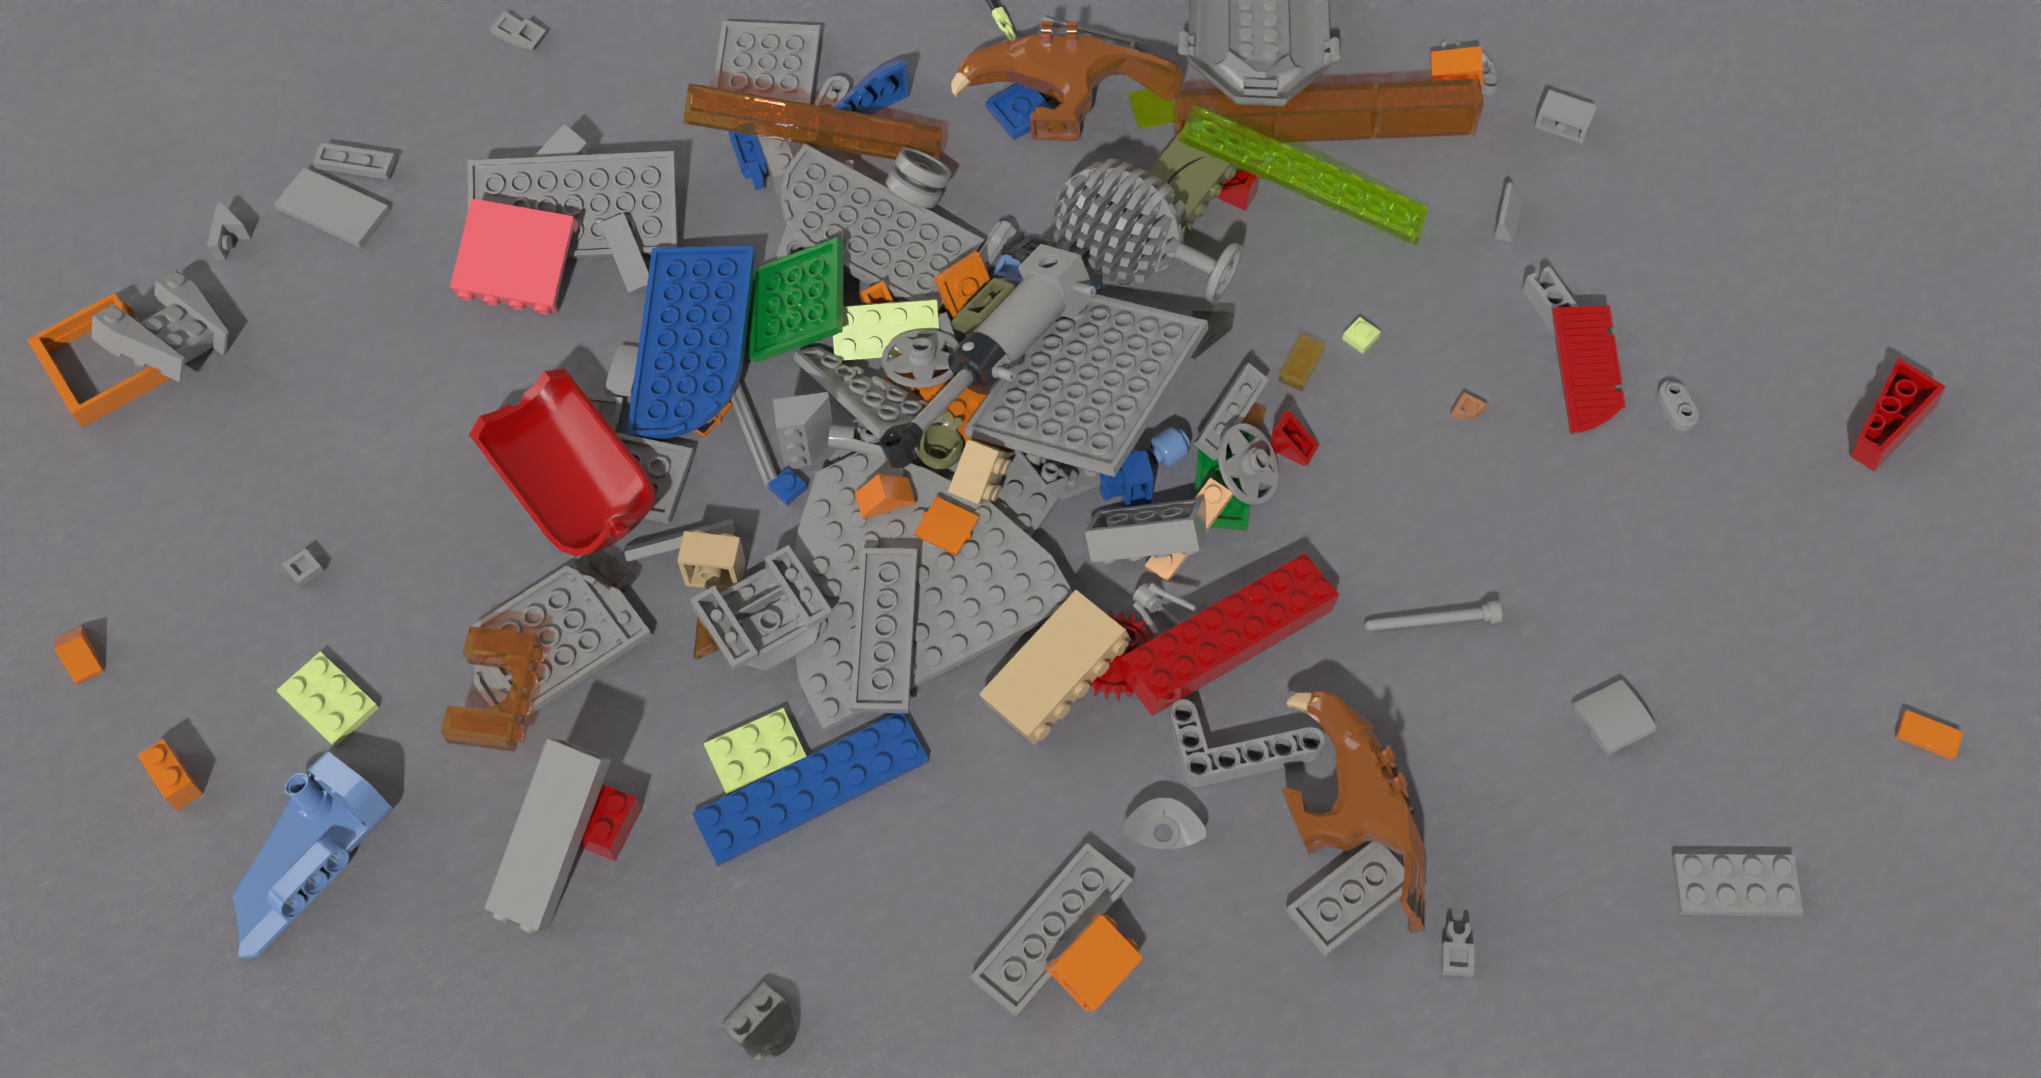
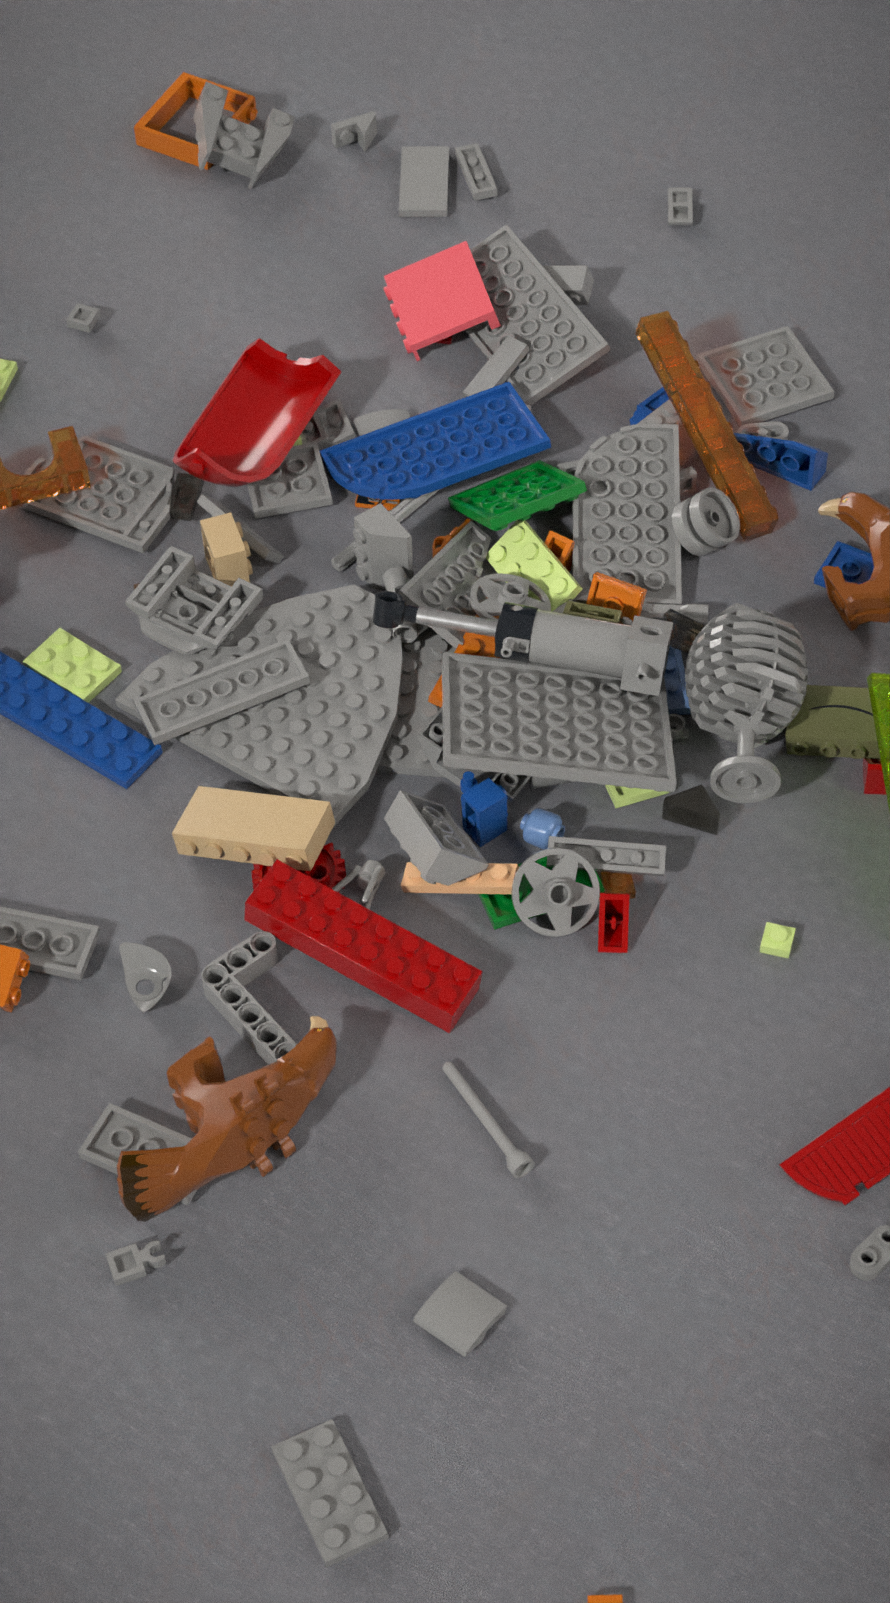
camera: 65 degrees right, 10 degrees down
(787, 486) = (337, 577): blue plate -> none
(795, 376) = (443, 540): none -> orange hand
(883, 495) = (353, 635): orange slope -> none
(941, 444) = (425, 651): olive hat -> none
(946, 526) = (349, 692): orange piece -> none
(980, 472) = (407, 683): tan brick -> none
(1301, 363) = (708, 900): clear yellow plate -> none
(1468, 407) = (750, 1062): nougat tile -> none

